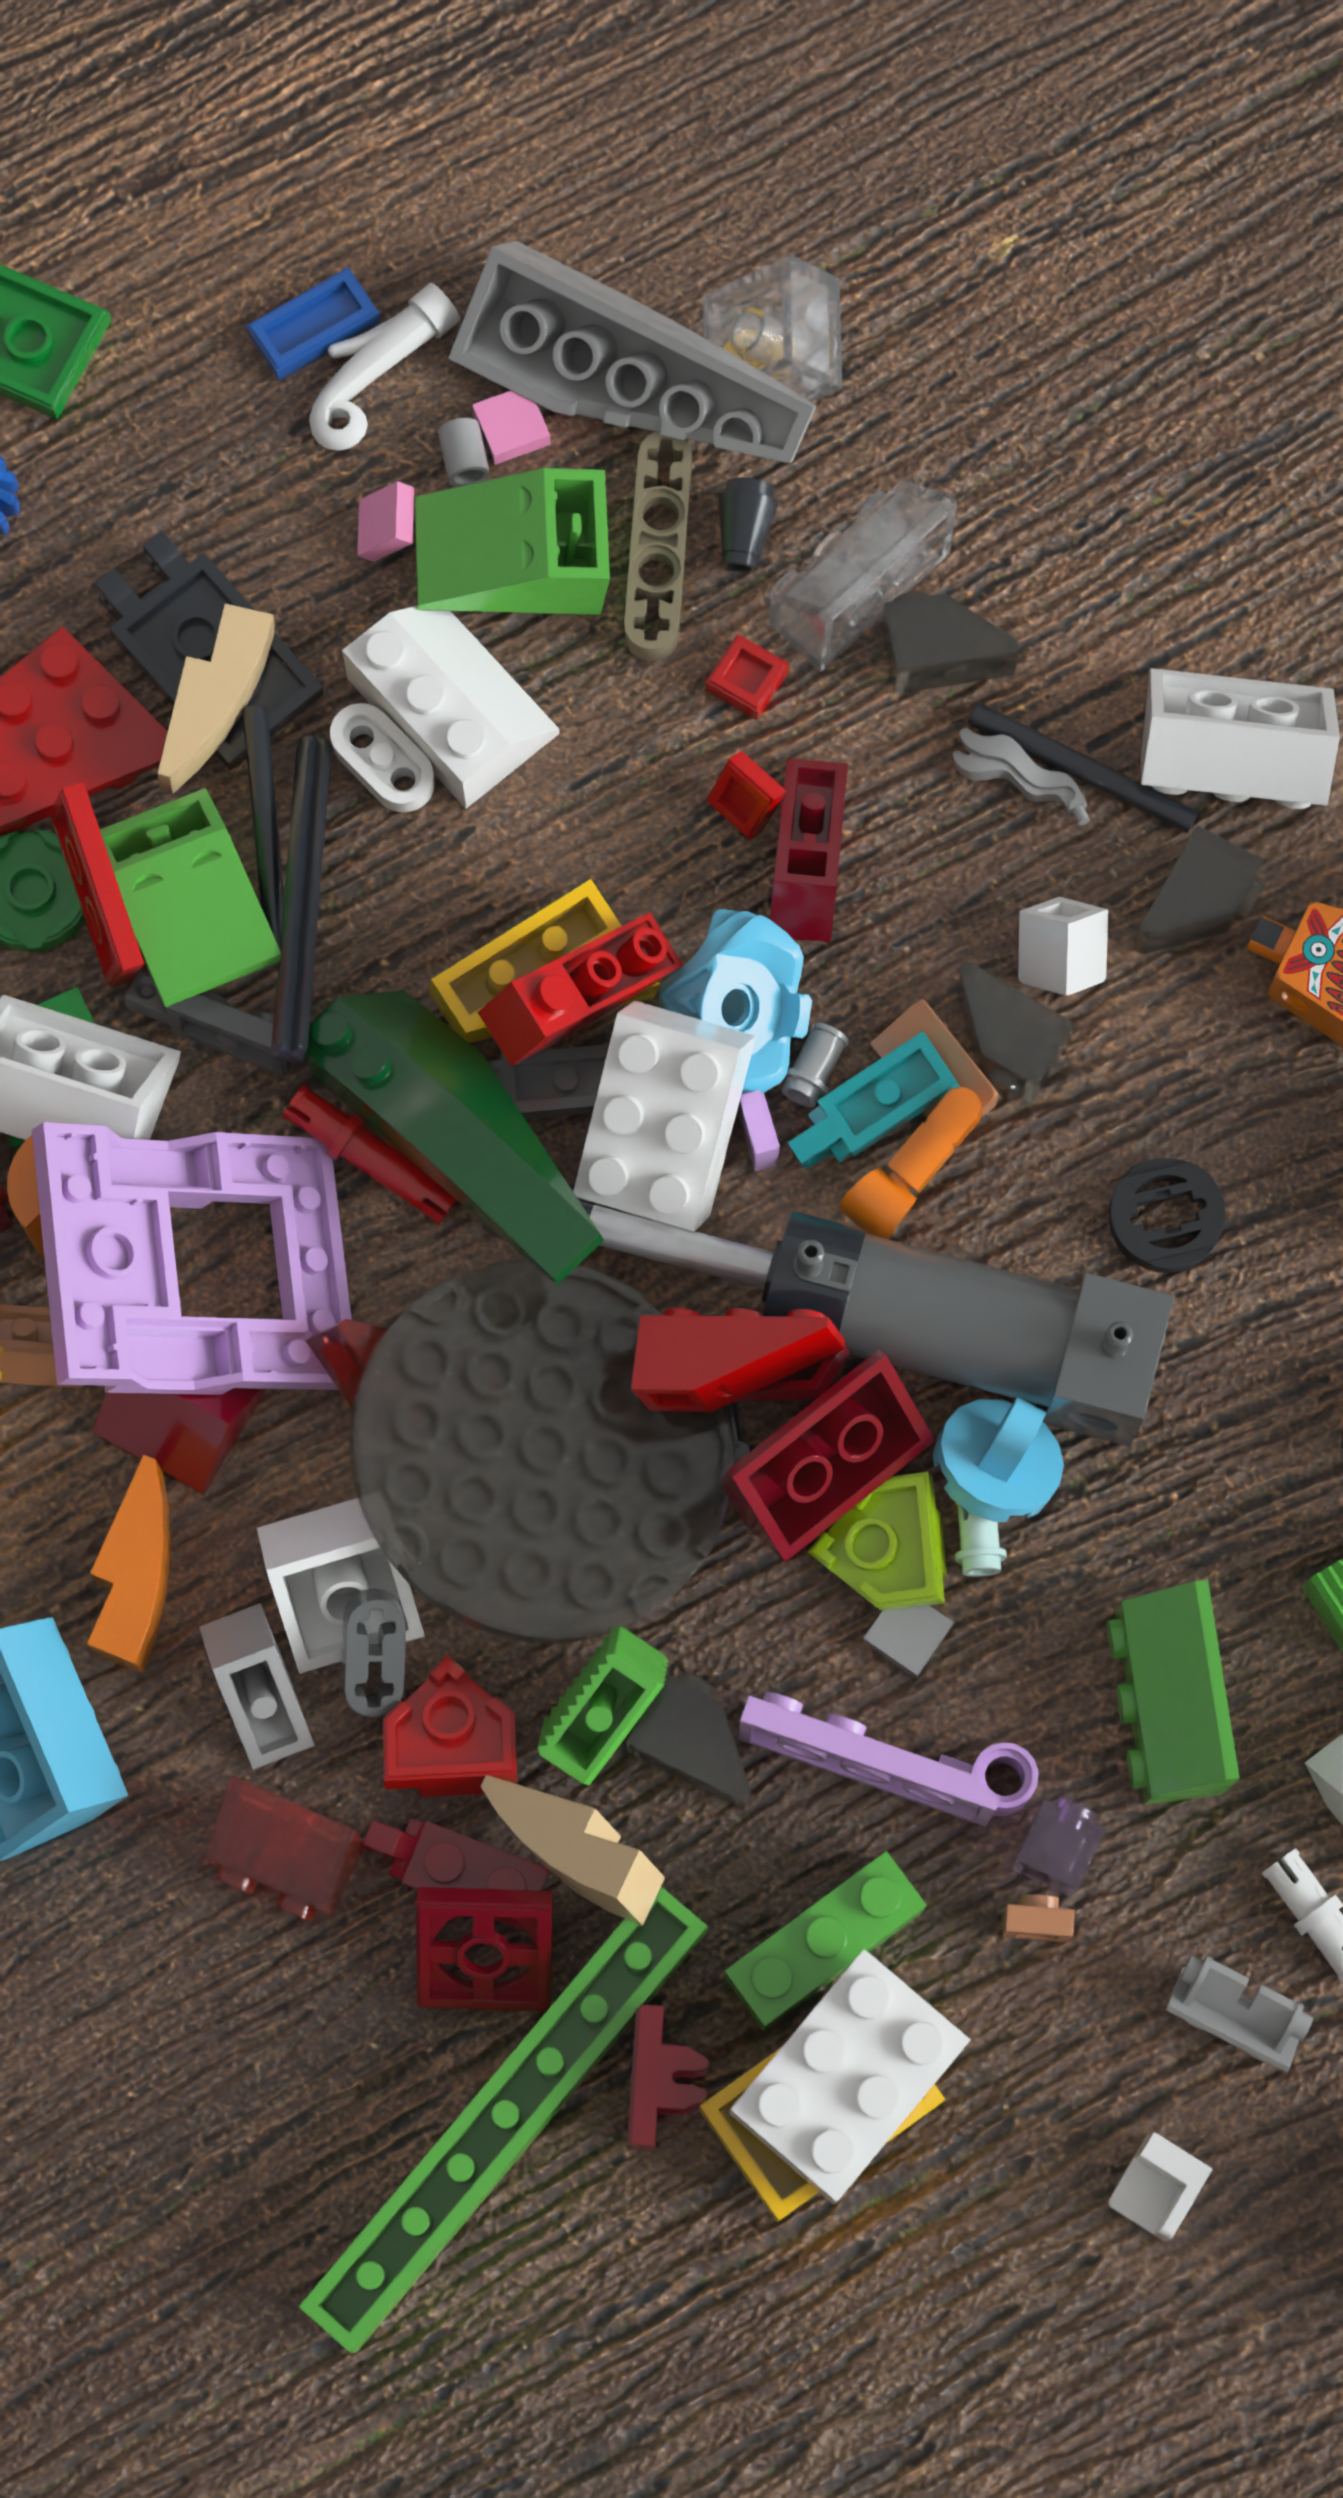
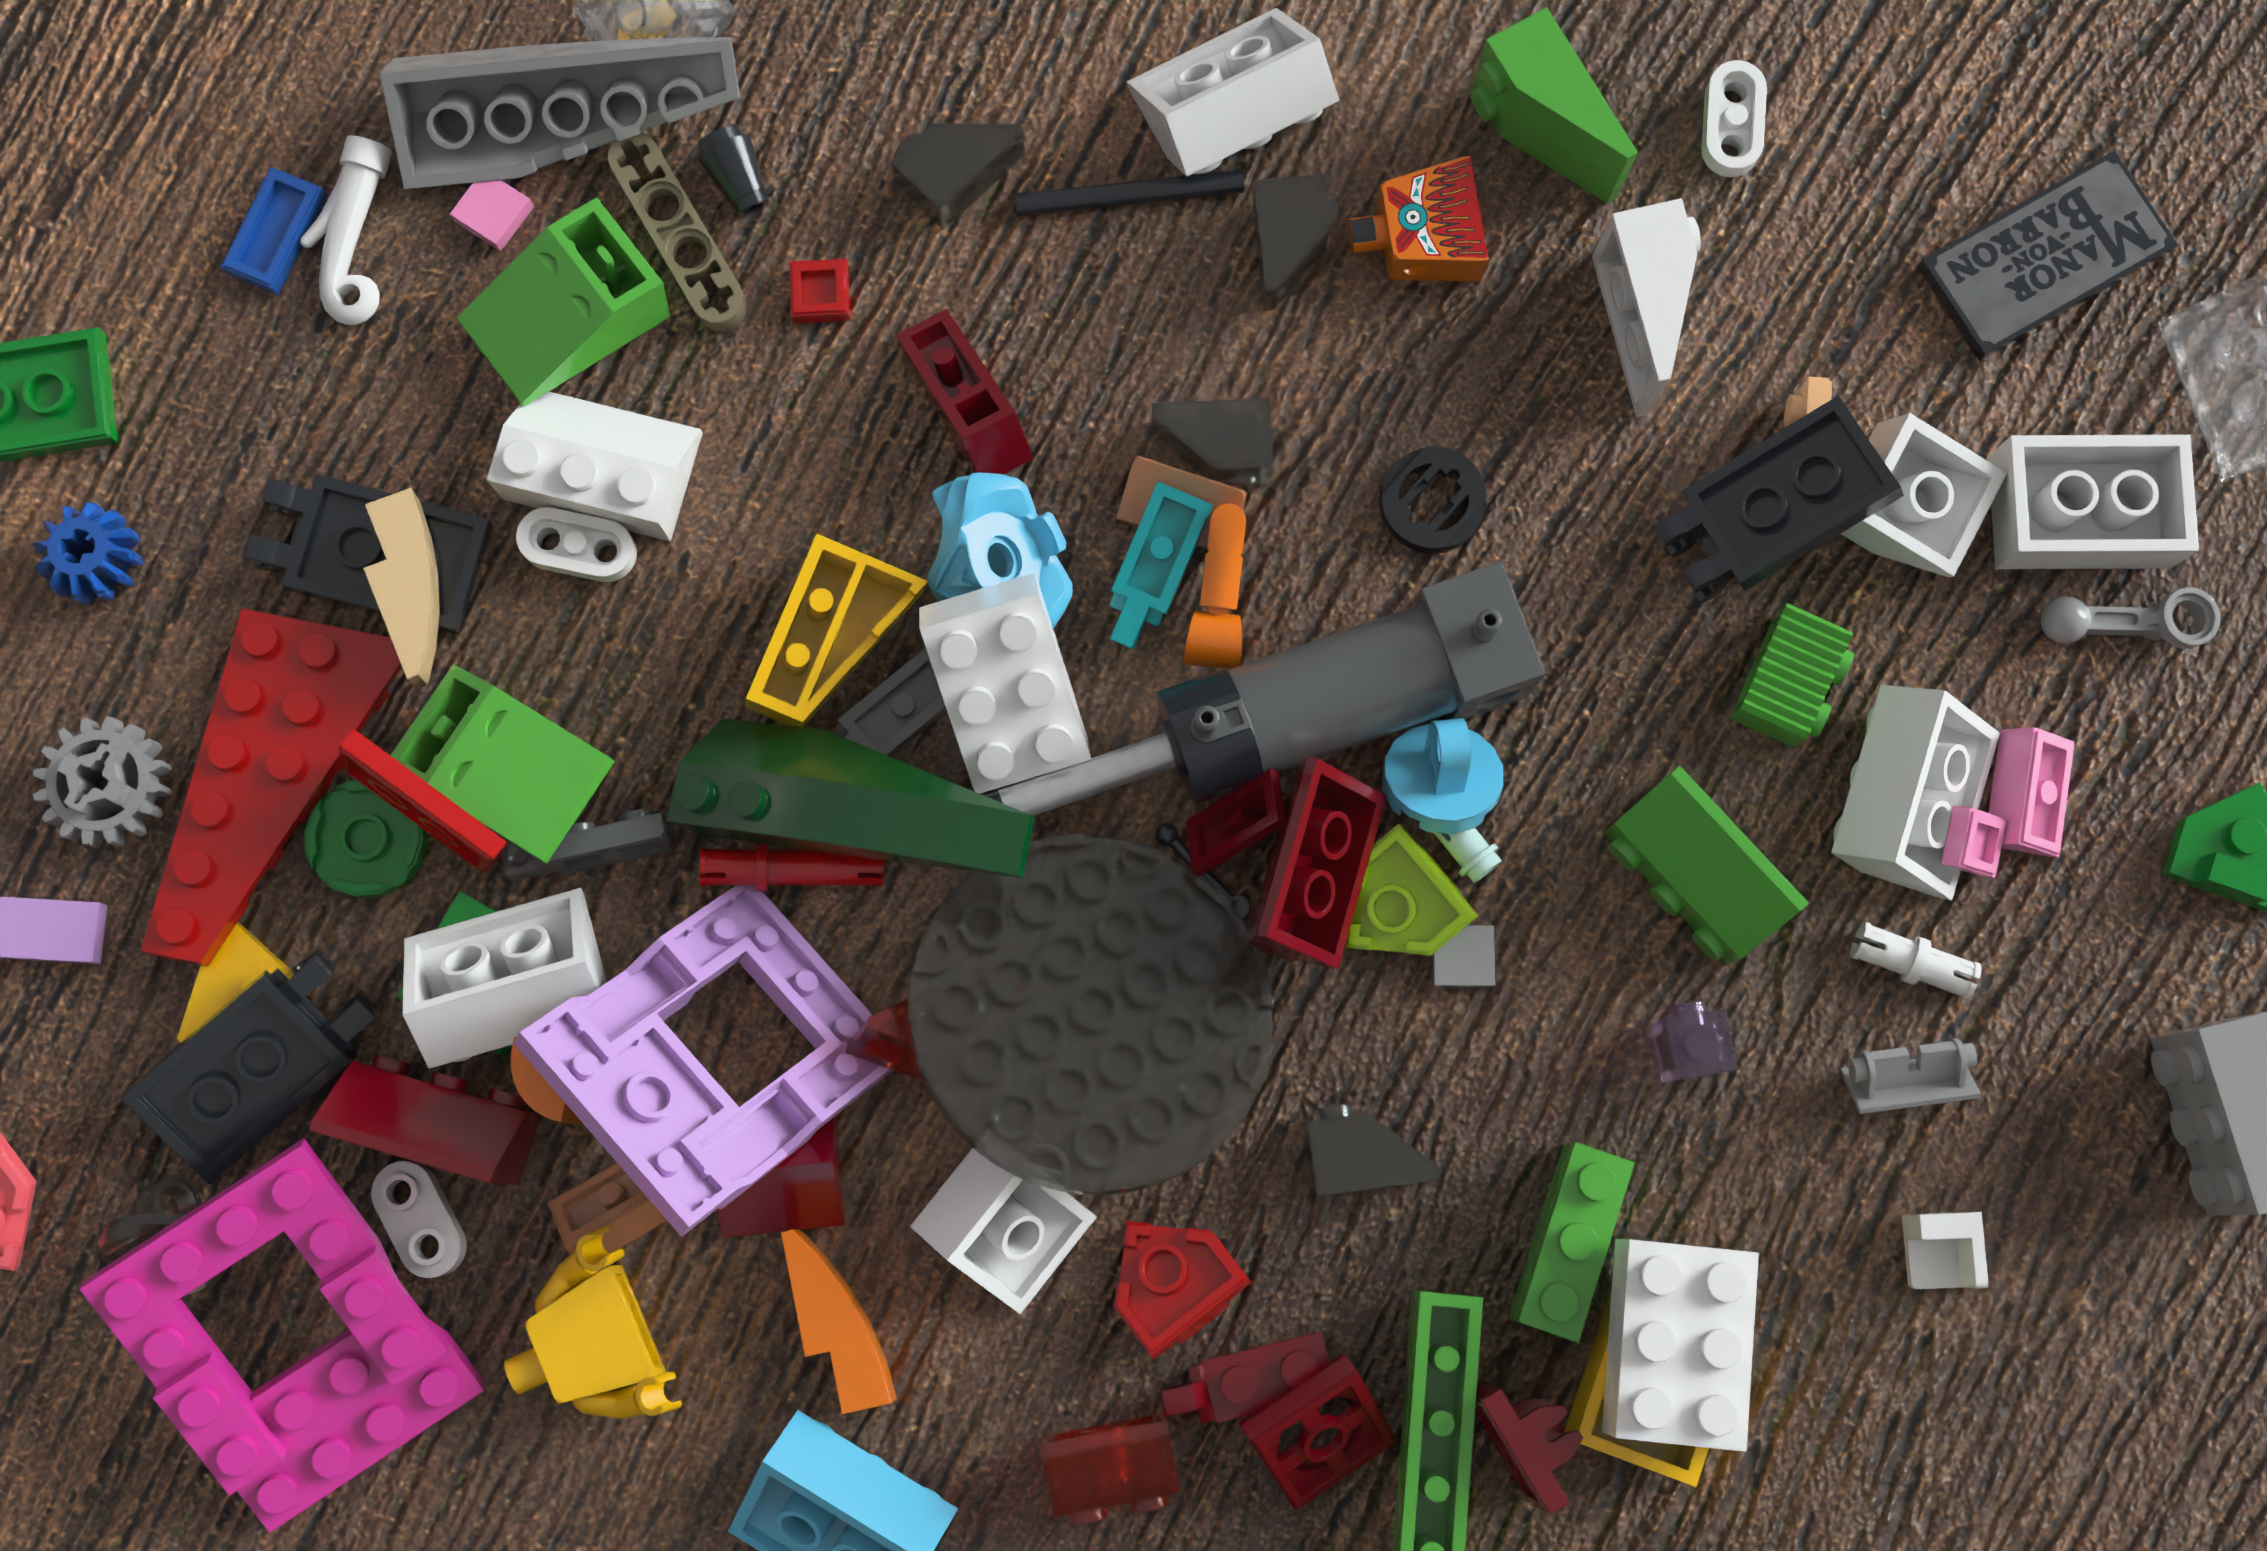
camera: 35 degrees left, 5 degrees up
(256, 1686) = (995, 1349): light grey slope -> none
(264, 816) = (519, 658): black bar -> none
(301, 899) = (594, 702): black axle -> none
(385, 521) = (446, 352): bright pink tile -> none
(388, 1652) = (1081, 1254): dark grey beam -> none
(463, 452) = (469, 256): light grey hinge -> none
(578, 988) = (869, 627): red slope -> none
(578, 1848) = (1340, 1307): tan slope -> none
(602, 1705) = (1279, 1179): bright green brick -> none
(715, 1360) = (1179, 852): red slope -> none
(746, 795) = (886, 385): red tile -> none
(758, 1130) = (1081, 644): lavender tile -> none
(808, 1077) = (1087, 563): light grey pin -> none
(845, 1751) = (1578, 1051): lavender hinge -> none
(857, 571) = (853, 146): clear slope -> none
(1004, 758) = (1066, 225): light grey hair -> none
(1037, 1919) = (1716, 1110): nougat plate -> none
(1062, 945) = (1212, 343): white panel -> none

